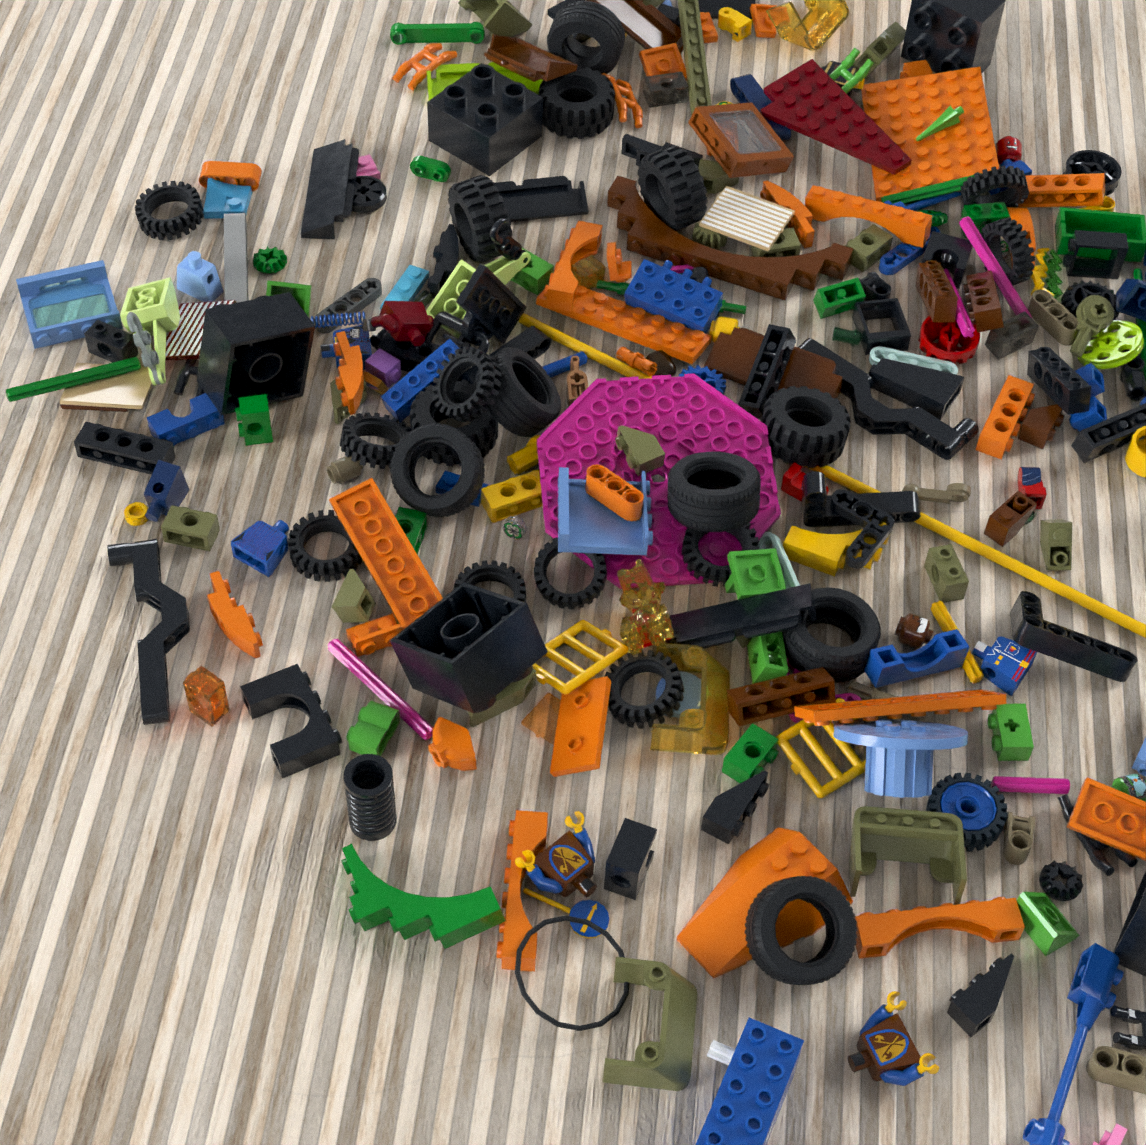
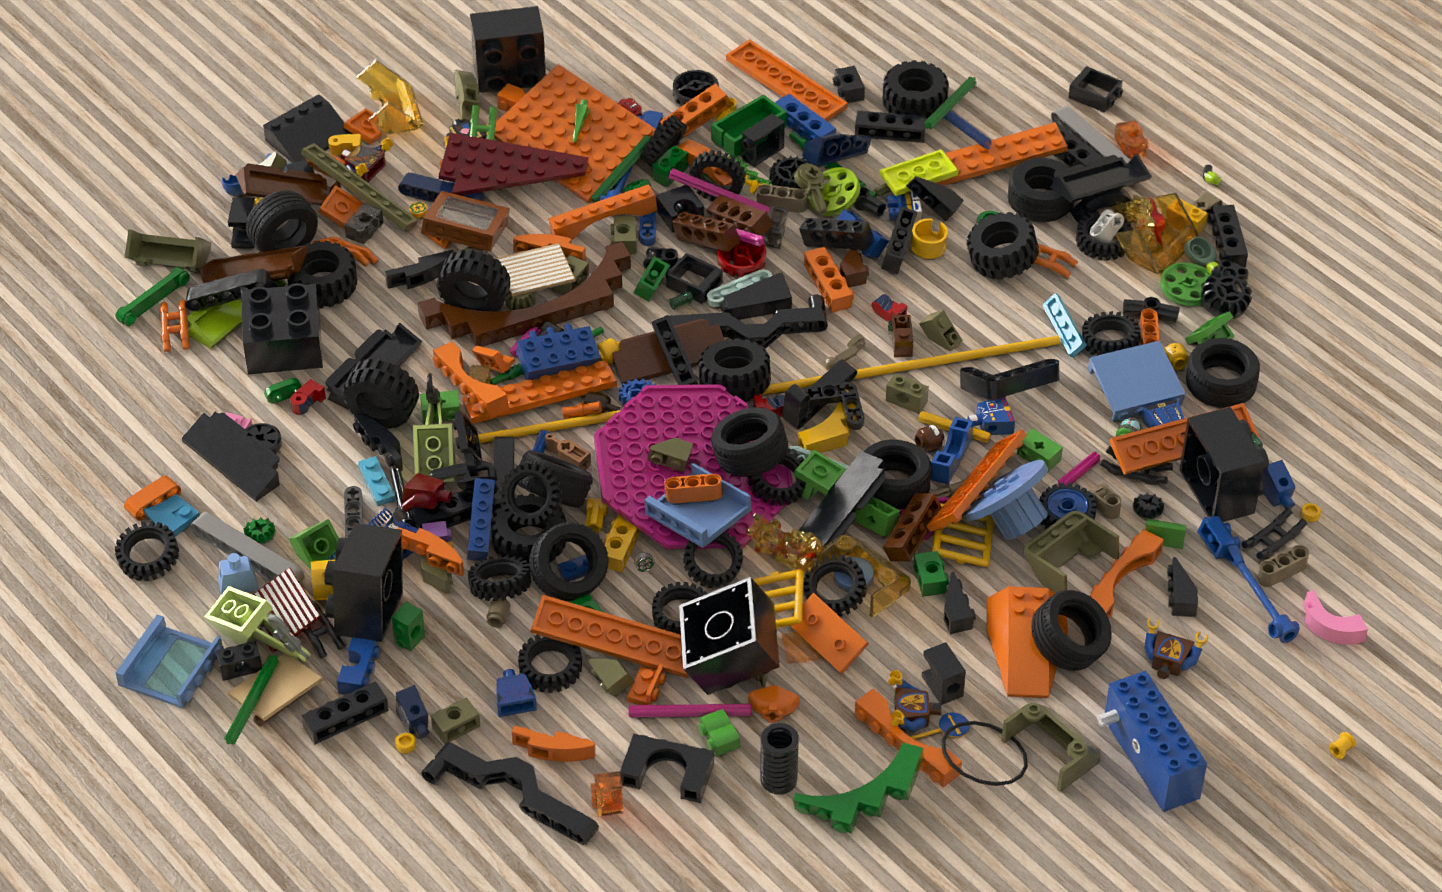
camera: 45 degrees left, 5 degrees down
(437, 185) = (307, 396): none -> red leg
(469, 55) = (226, 289): none -> black beam
(731, 44) = (367, 161): none -> torso

